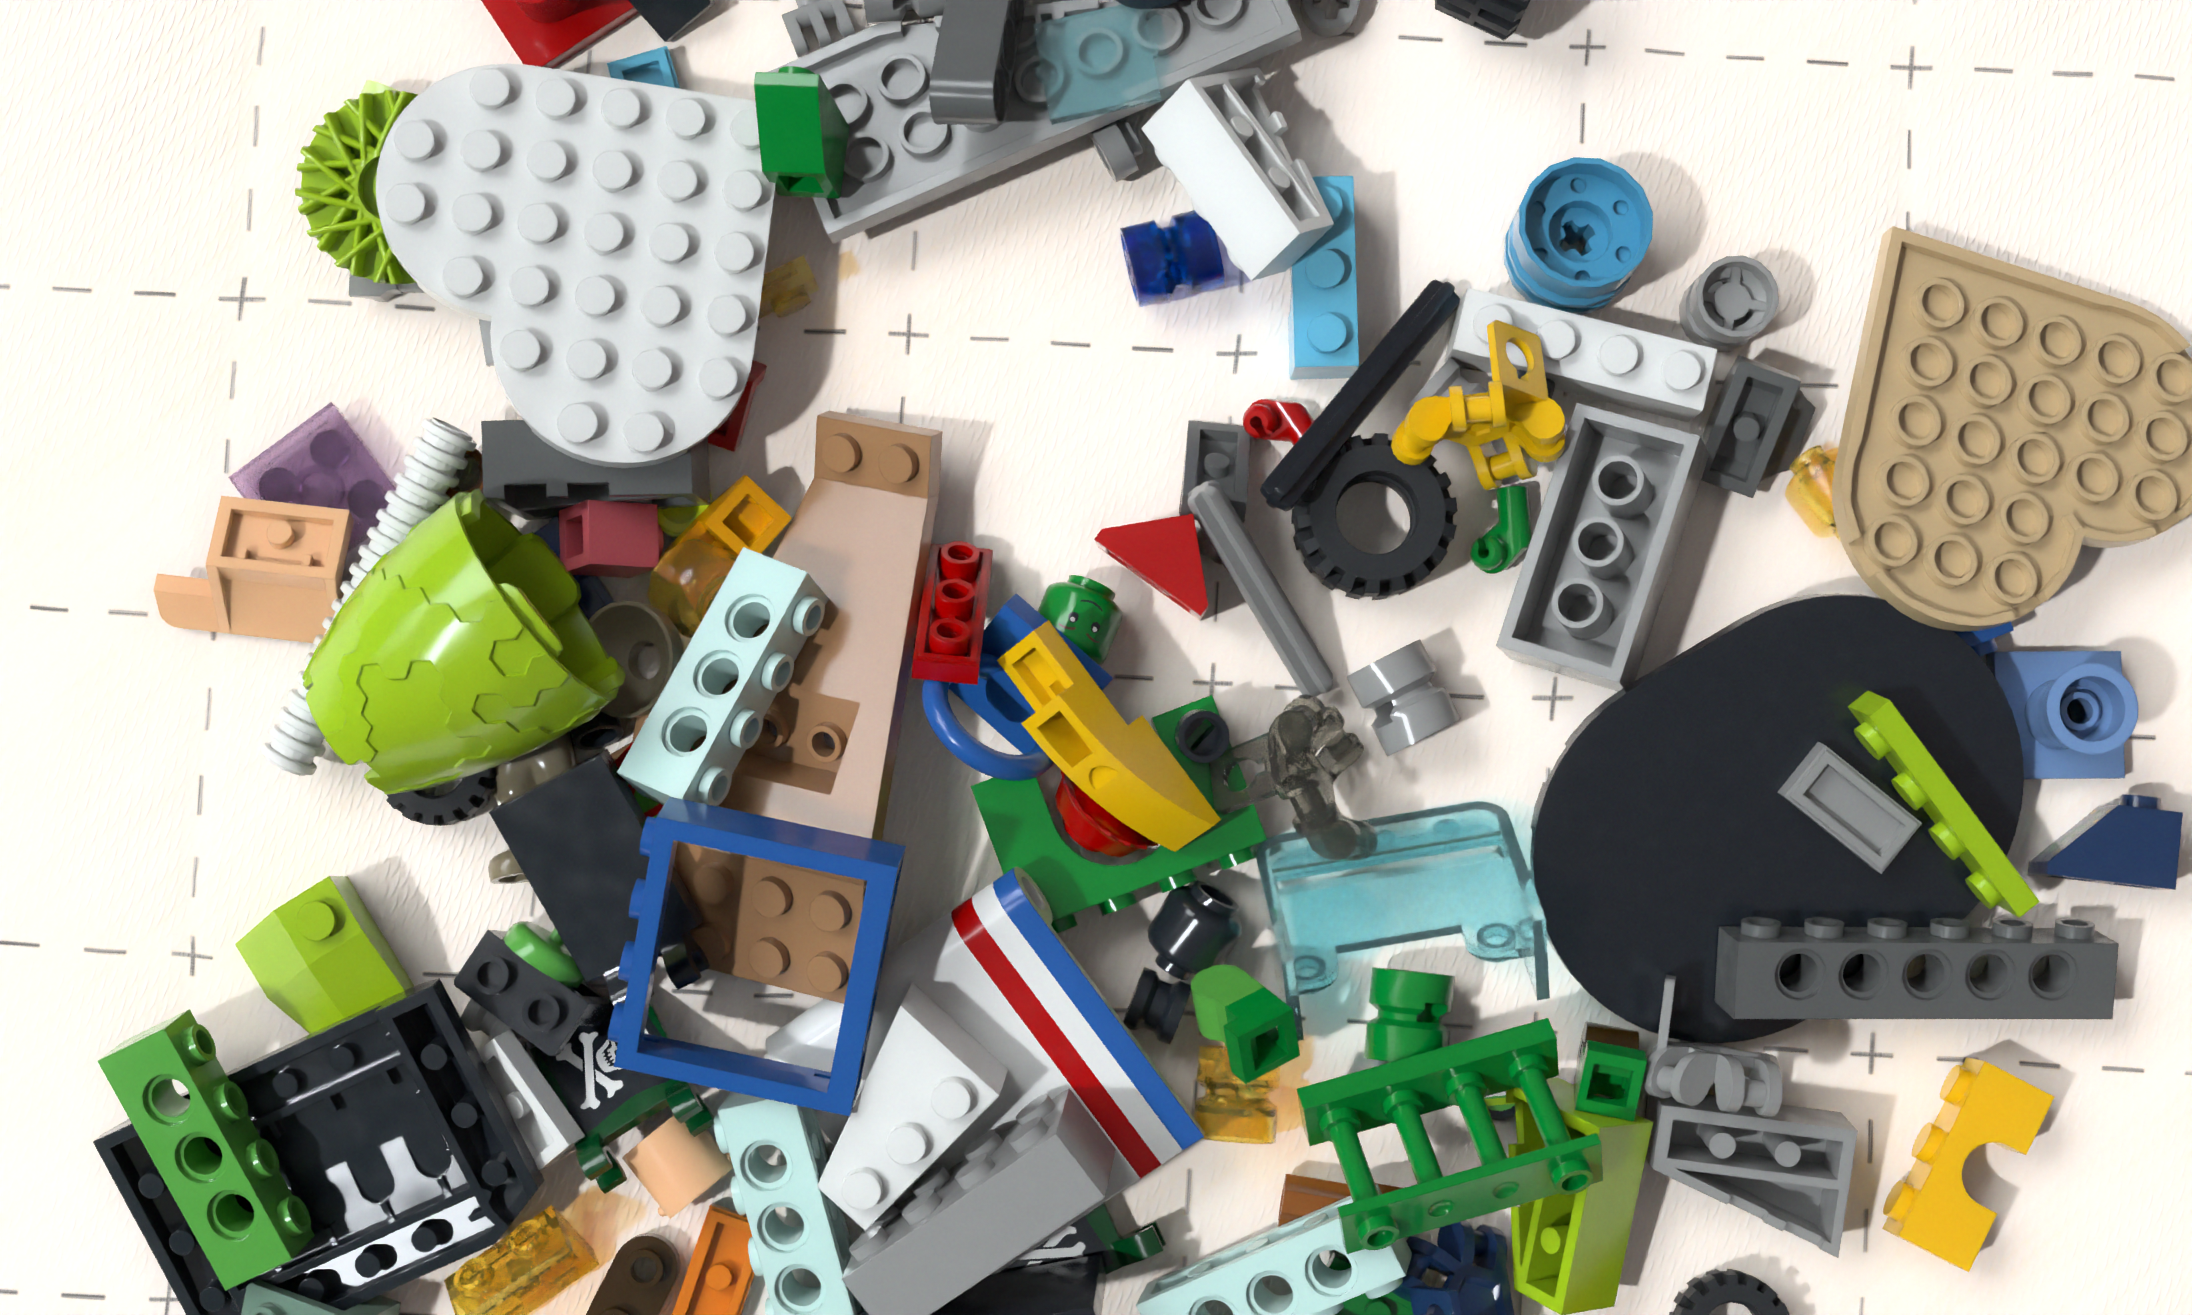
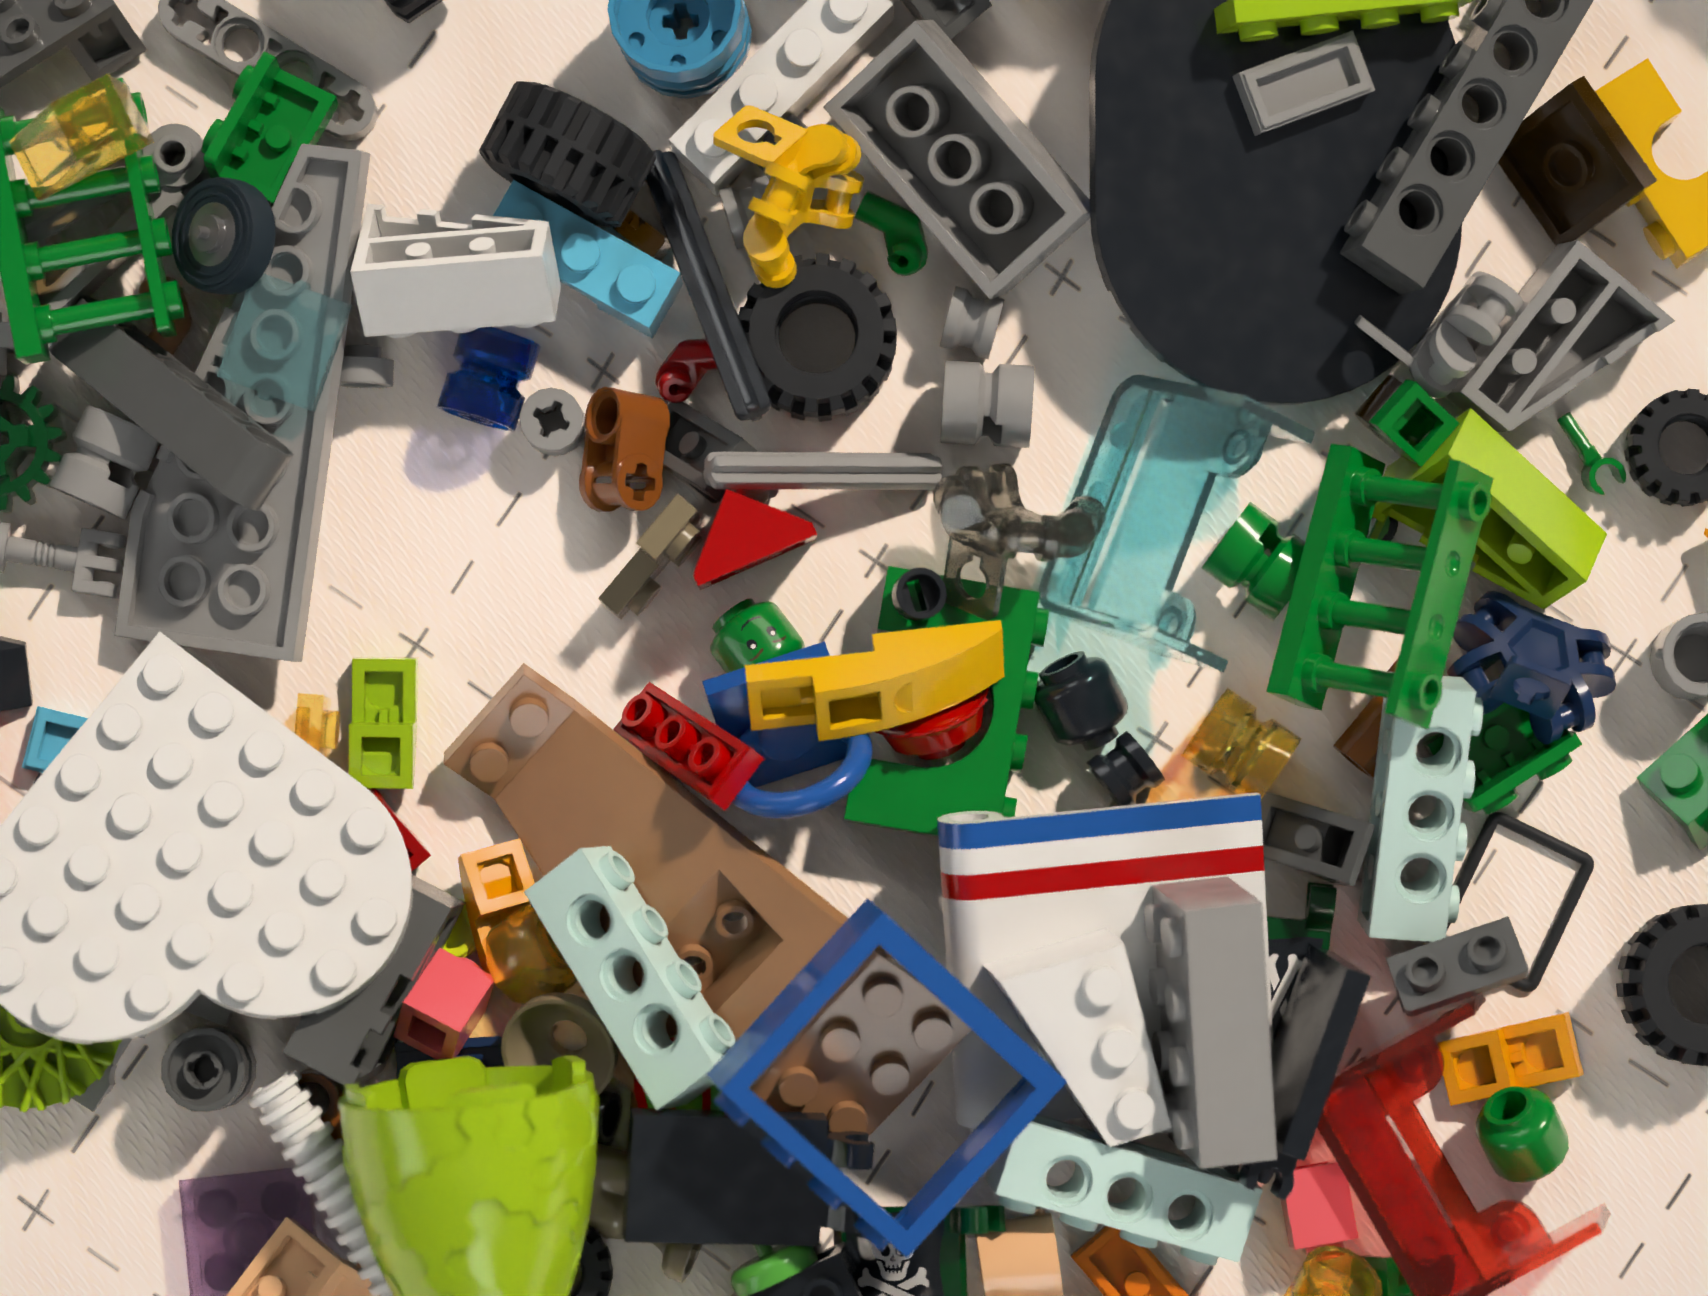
camera: 50 degrees left, 0 degrees up
(439, 370) = (208, 1069): none -> dark grey wheel
(800, 133) = (195, 632): green slope -> none
(824, 345) = (384, 721): none -> lime slope
(1122, 490) = (668, 539): none -> dark tan plate
(1167, 348) = (558, 436): none -> light grey wheel
(1182, 409) = (626, 444): none -> dark orange piece
(1194, 1206) = (1314, 839): none -> dark grey slope
(1245, 1017) = (1180, 701): green leg -> none
(1372, 316) = (644, 236): none -> dark brown tile
(1404, 208) = (568, 152): none -> black tyre
(1466, 643) = (971, 323): none -> light grey wheel
(1672, 1250) = (1589, 456): none -> green hand
(1922, 1086) = (1574, 163): none -> dark brown plate

